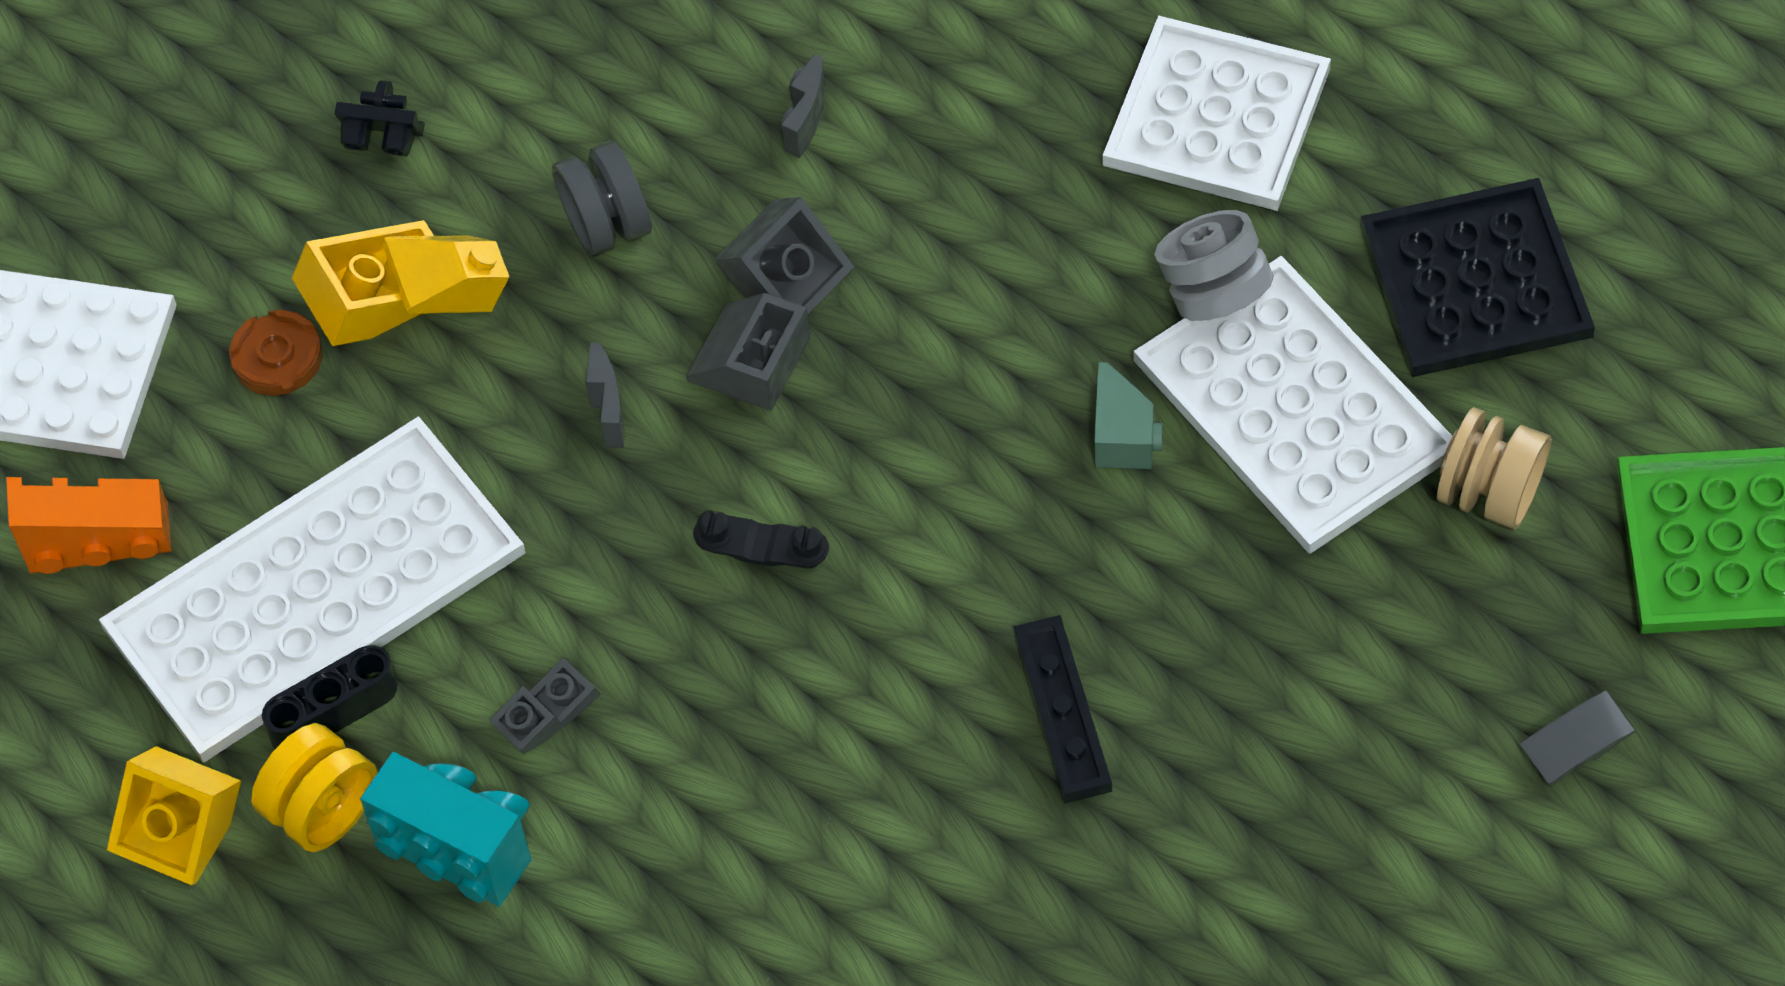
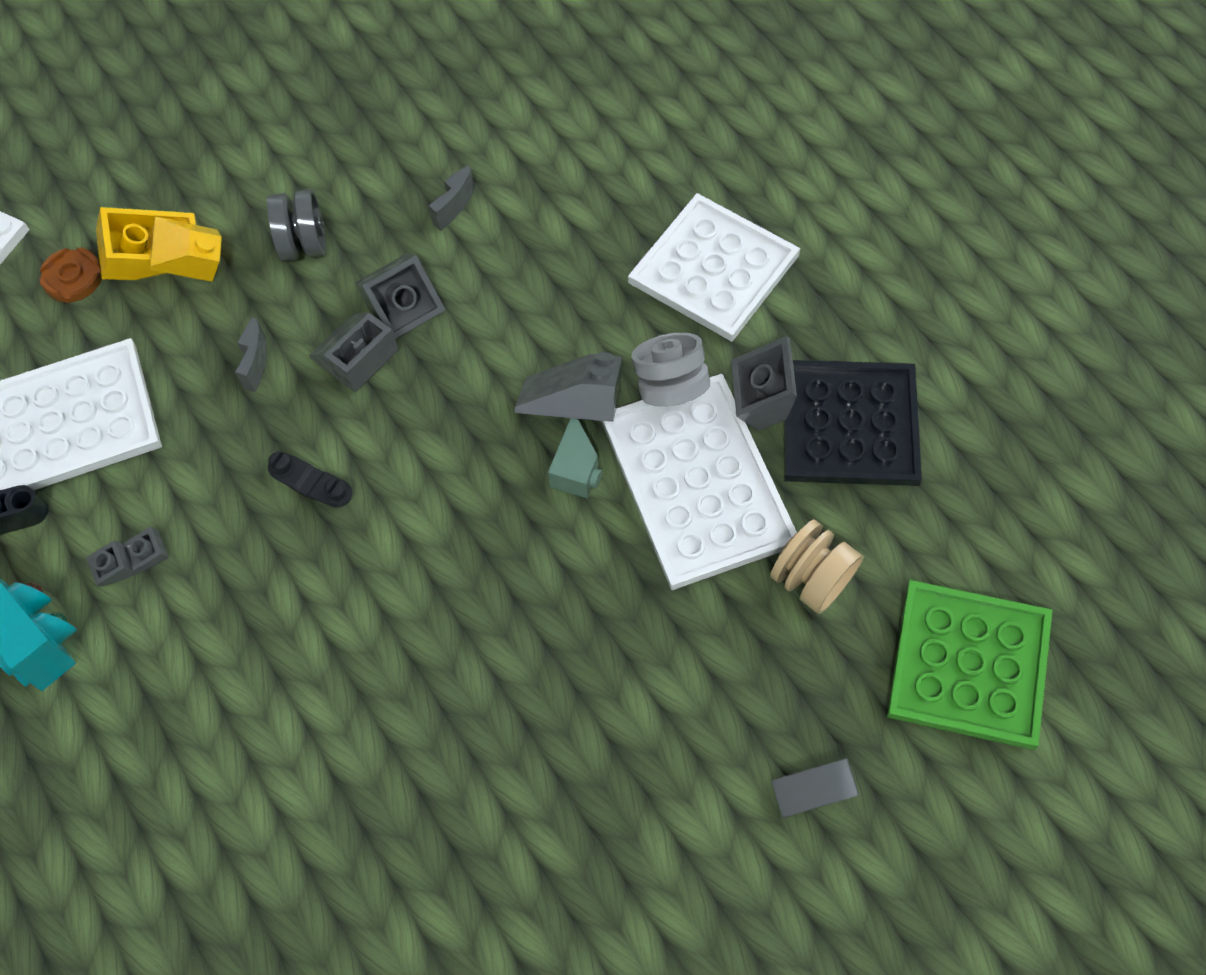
camera: 15 degrees right, 5 degrees up
(397, 124) = (195, 140): black hips -> none
(1062, 709) = (460, 659): black plate -> none
(1089, 324) = (575, 389): none -> dark grey slope
(1349, 253) = (764, 384): none -> dark grey slope

